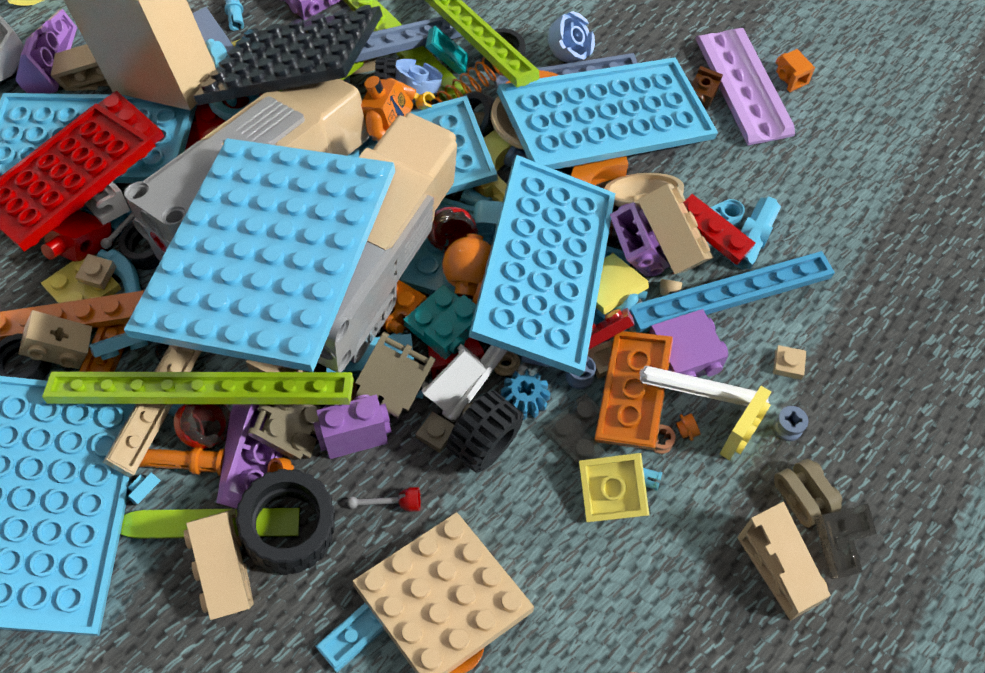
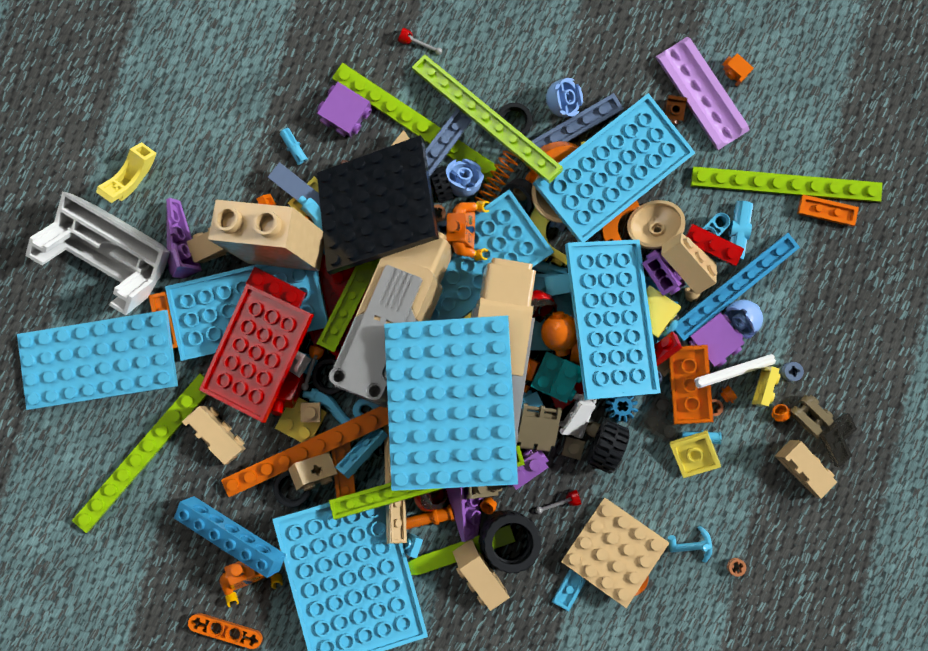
camera: 15 degrees left, 25 degrees up
(447, 50) = (475, 140): teal plate -> none
(588, 627) = (705, 545): none -> medium azure piece
(740, 325) = (745, 317): none -> light blue cylinder
(761, 474) = (781, 413): none -> orange plate
(789, 362) = (782, 324): tan plate -> none
(834, 204) = (786, 184): none -> lime plate
(882, 244) = (827, 210): none -> orange plate

